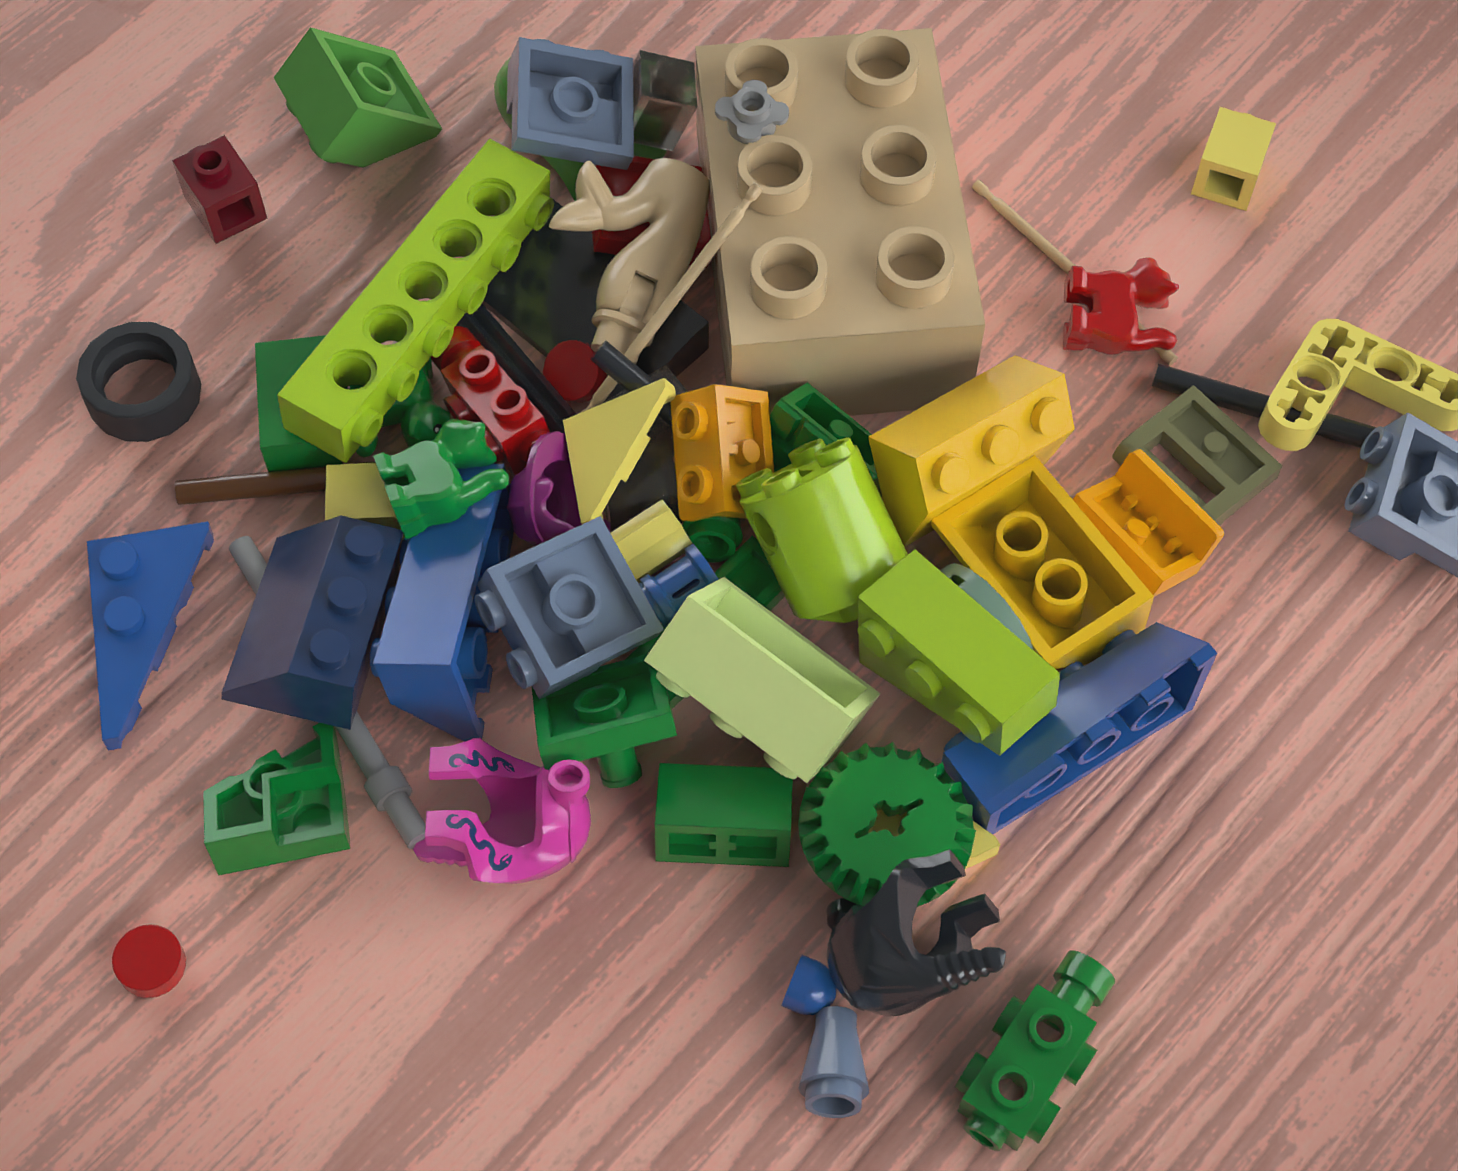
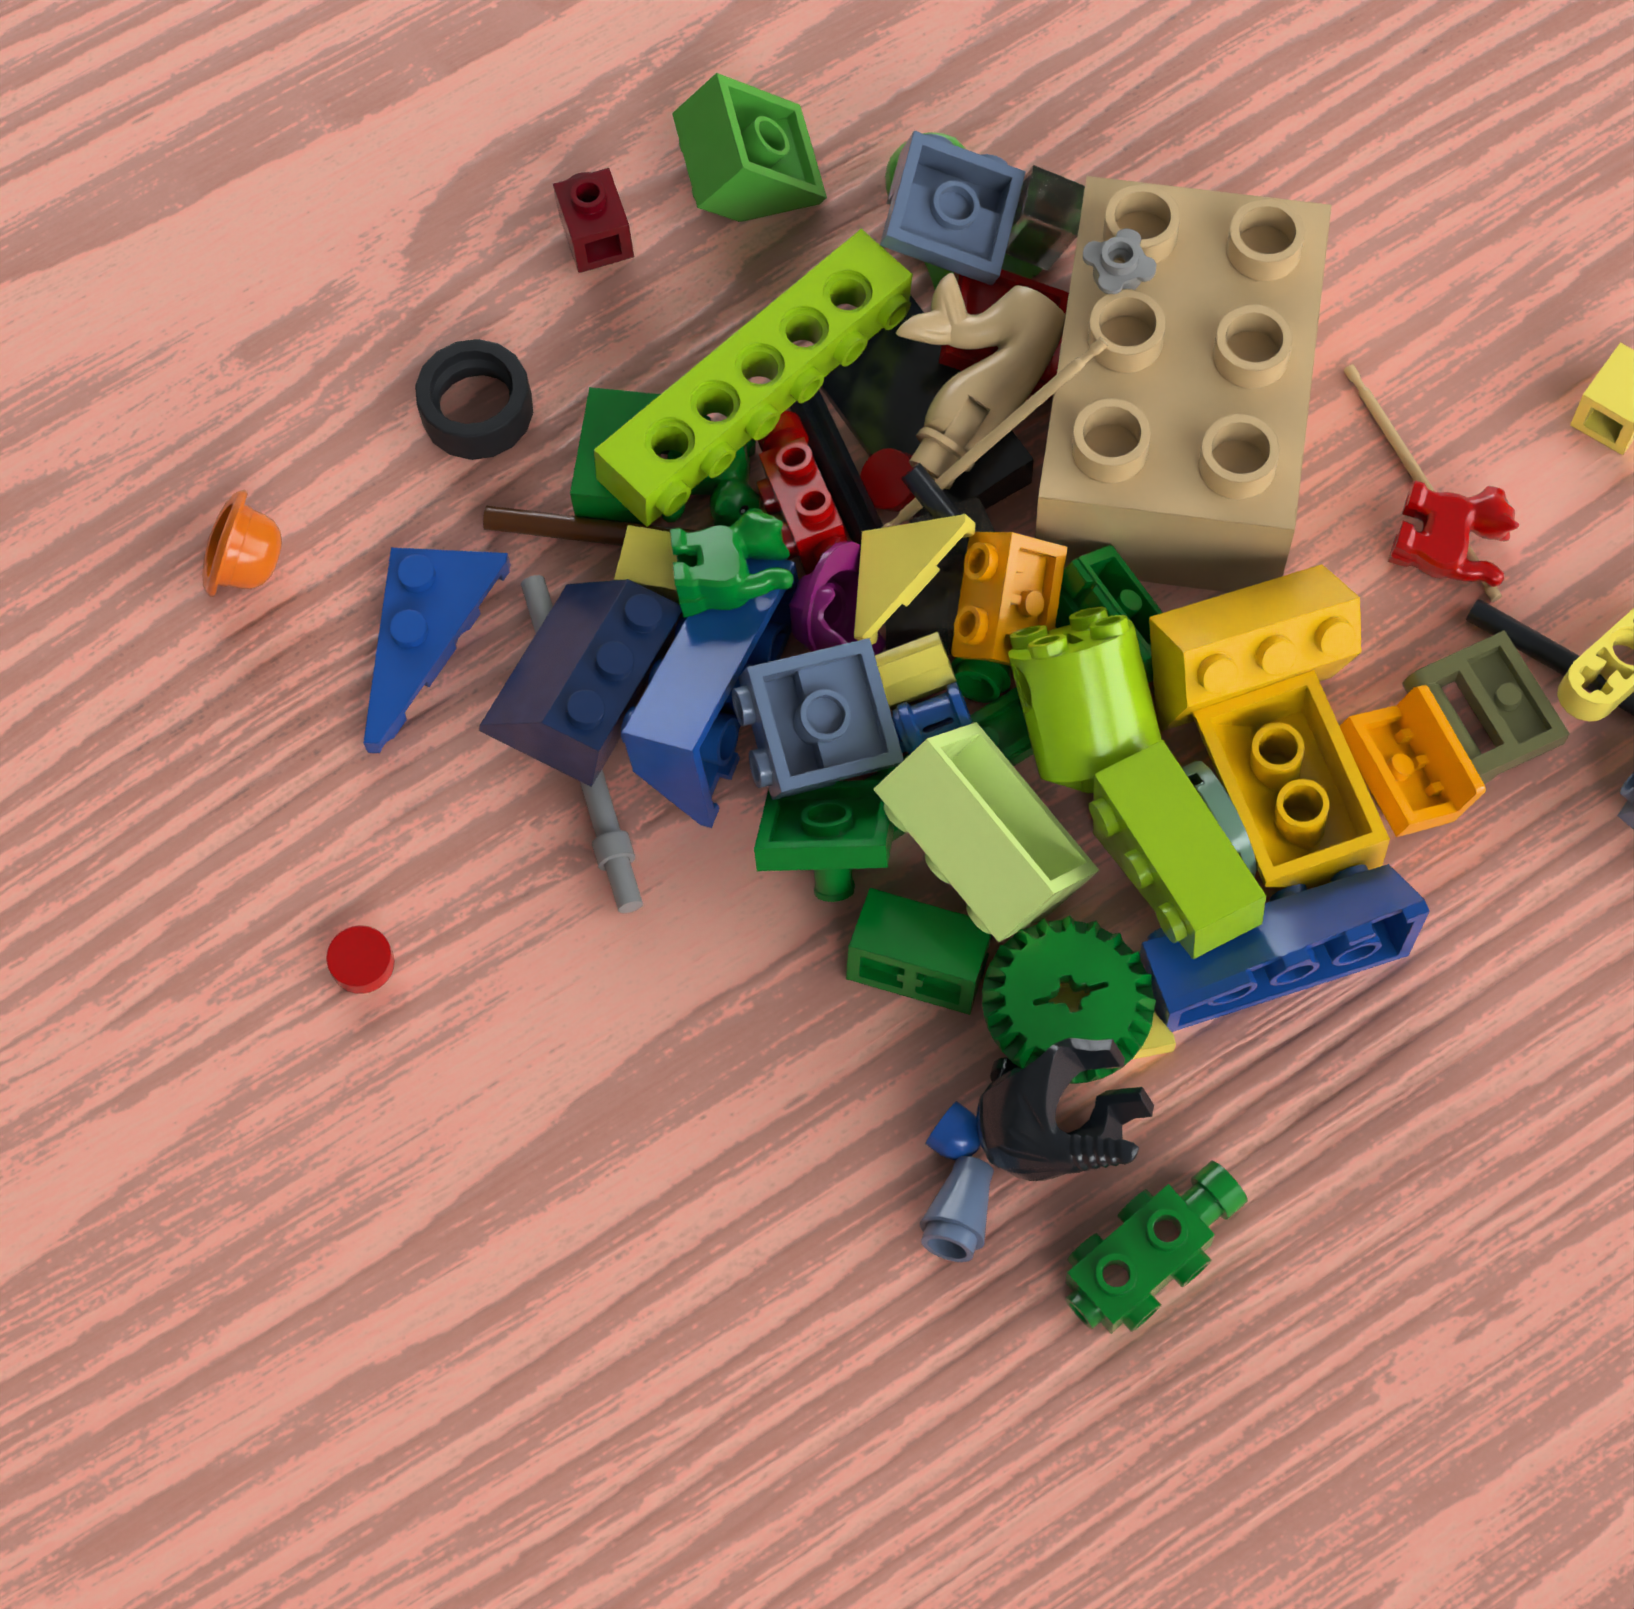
camera: 20 degrees right, 5 degrees up
(279, 808) = (510, 845): green slope -> none
(534, 821) = (741, 911): dark pink piece -> none

